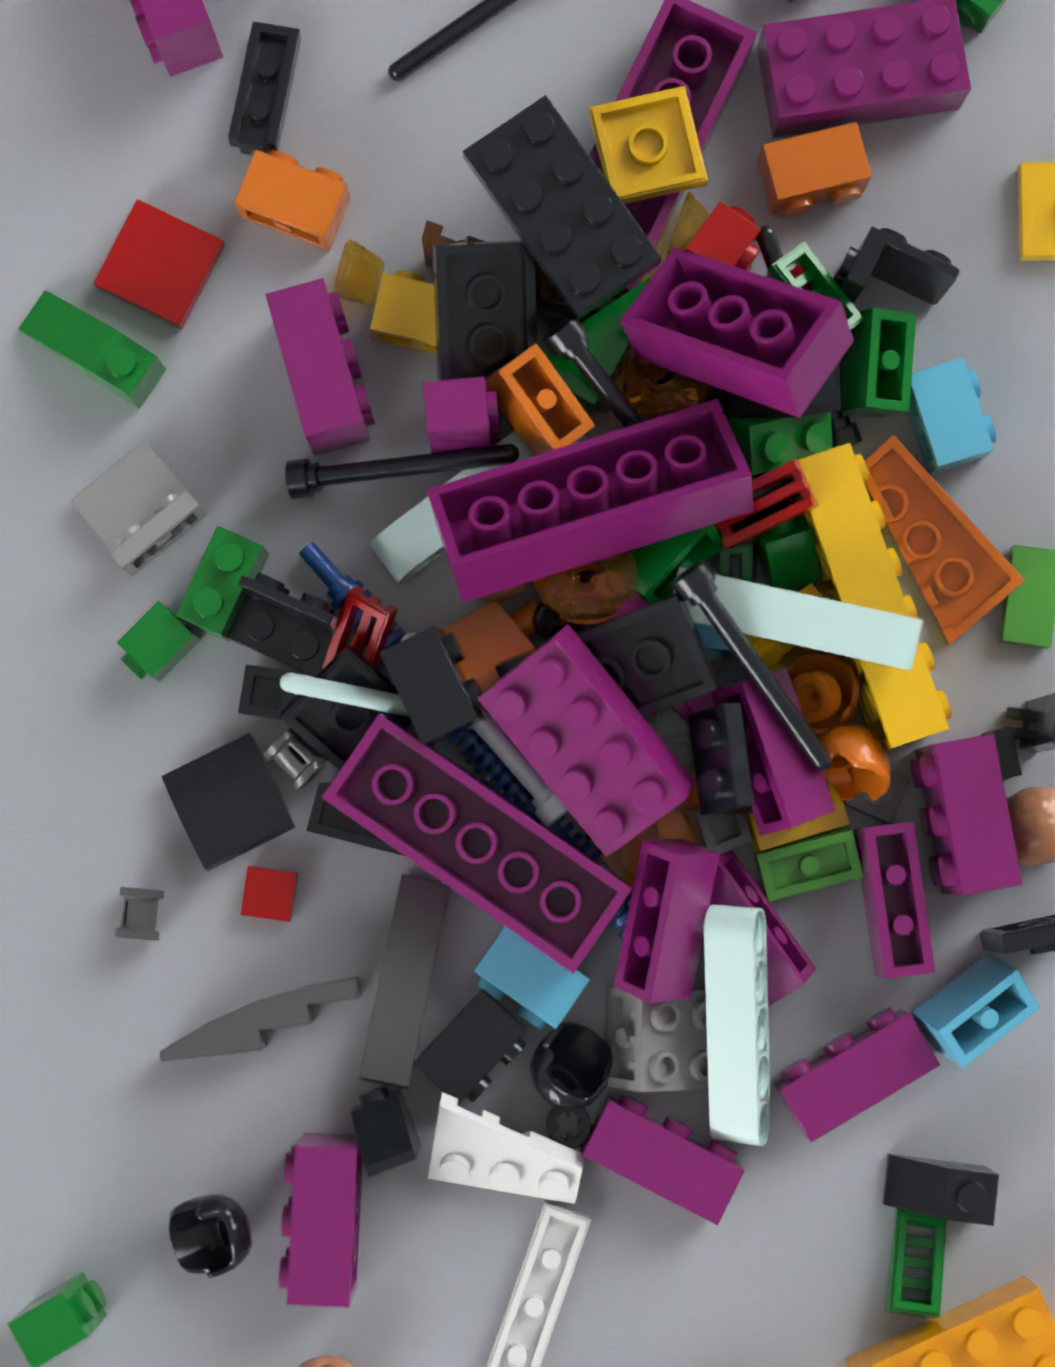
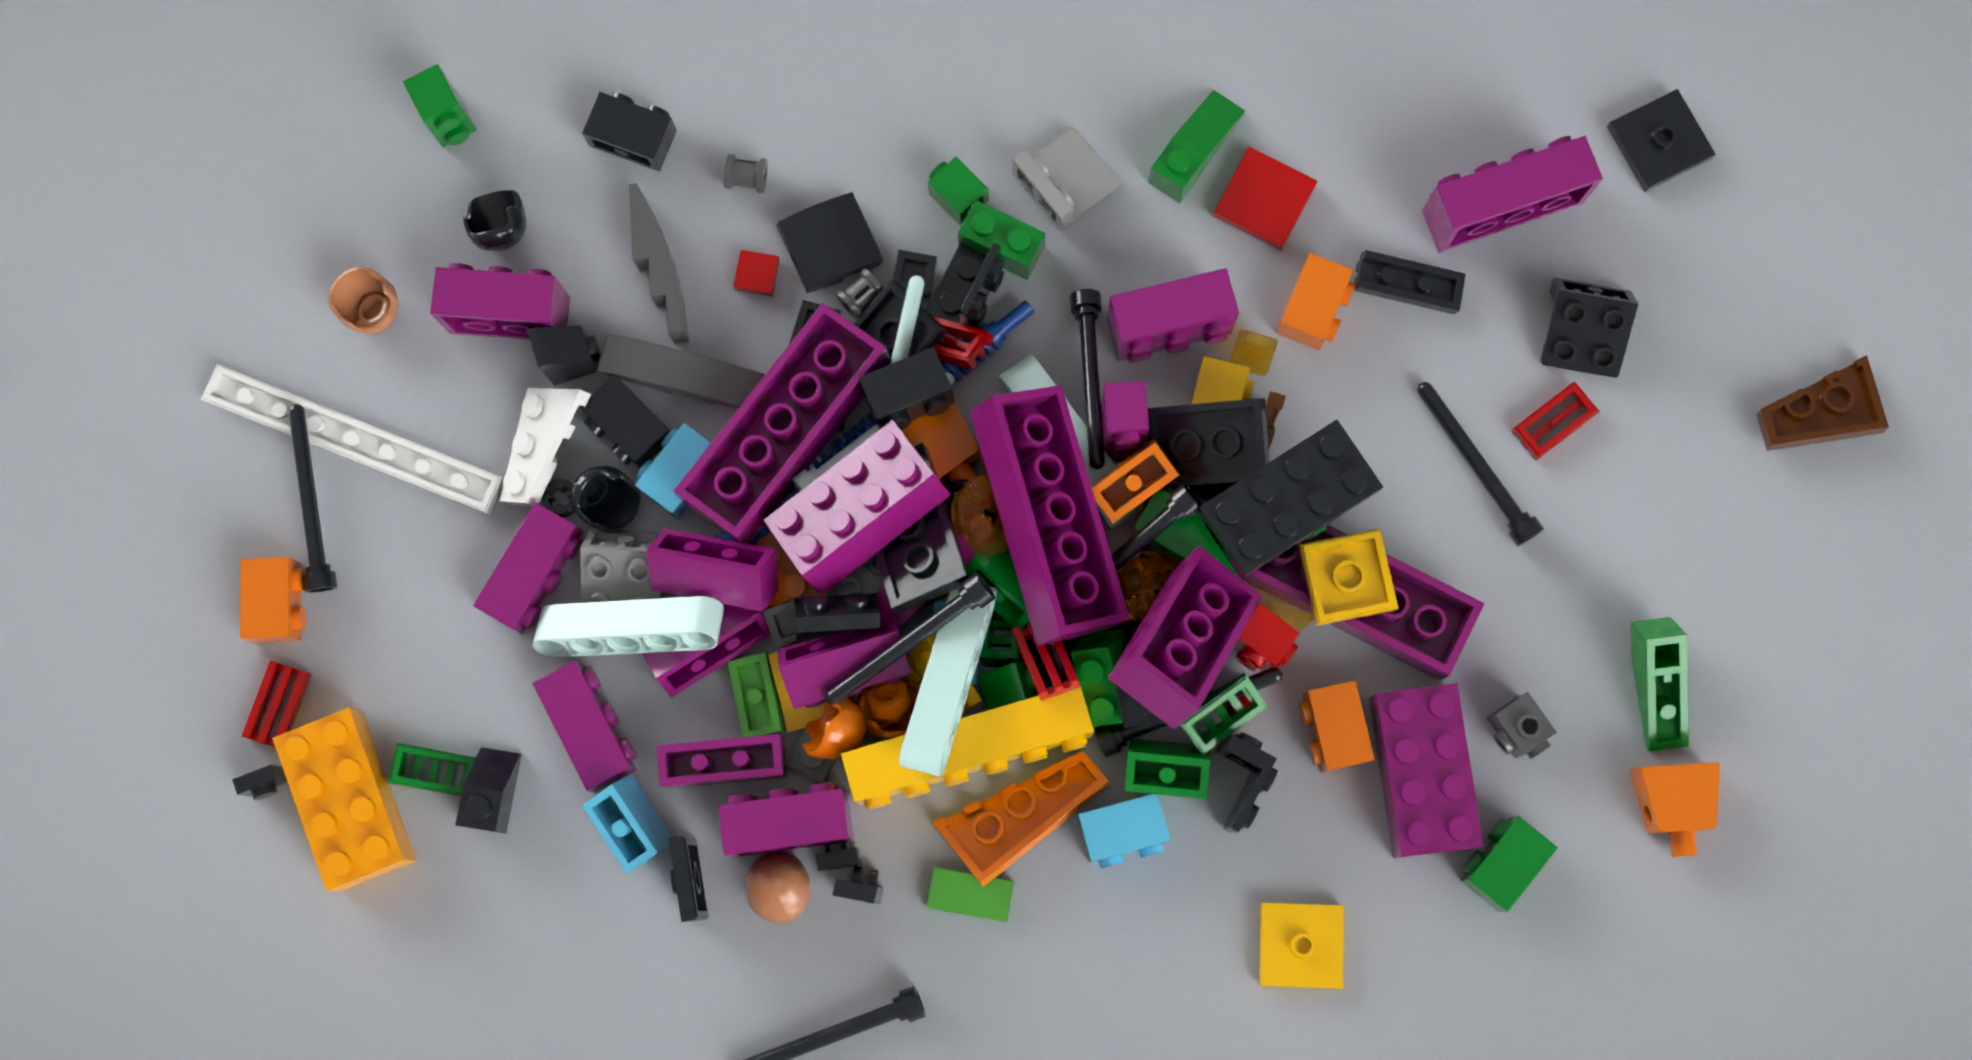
camera: 100 degrees right, 5 degrees down
(83, 1067) = (630, 130): none -> black brick

